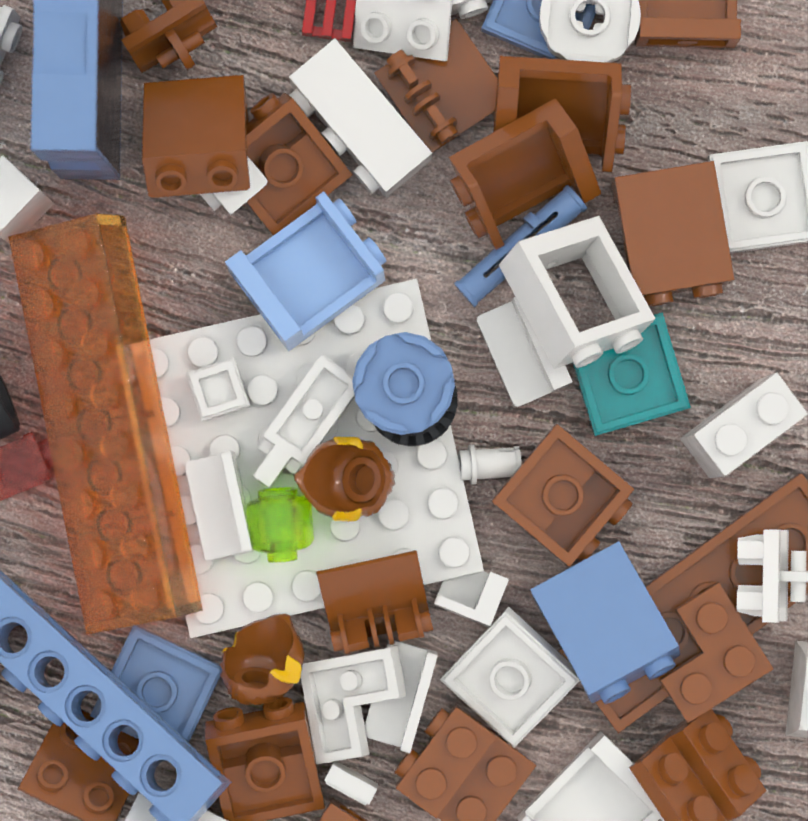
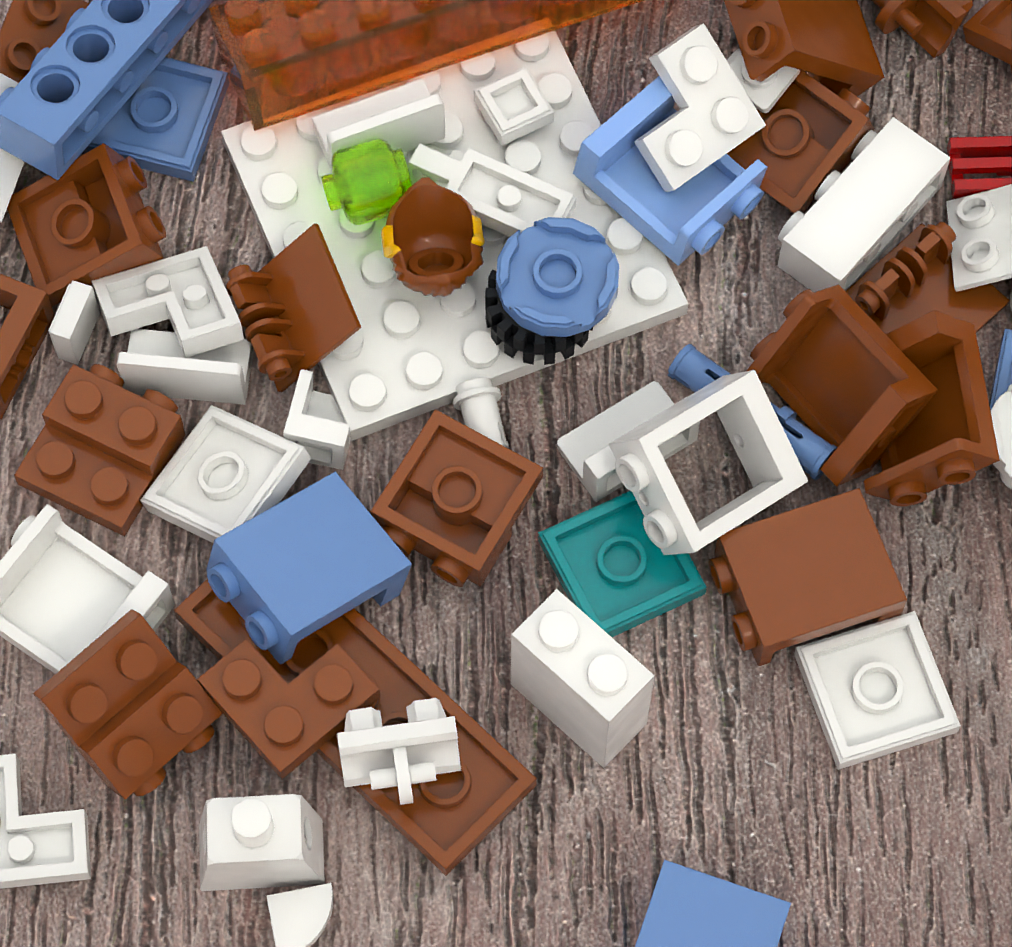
camera: 80 degrees right, 20 degrees down
(263, 661) = (202, 205): dark orange hair -> none
(267, 227) = (712, 112): none -> white plate

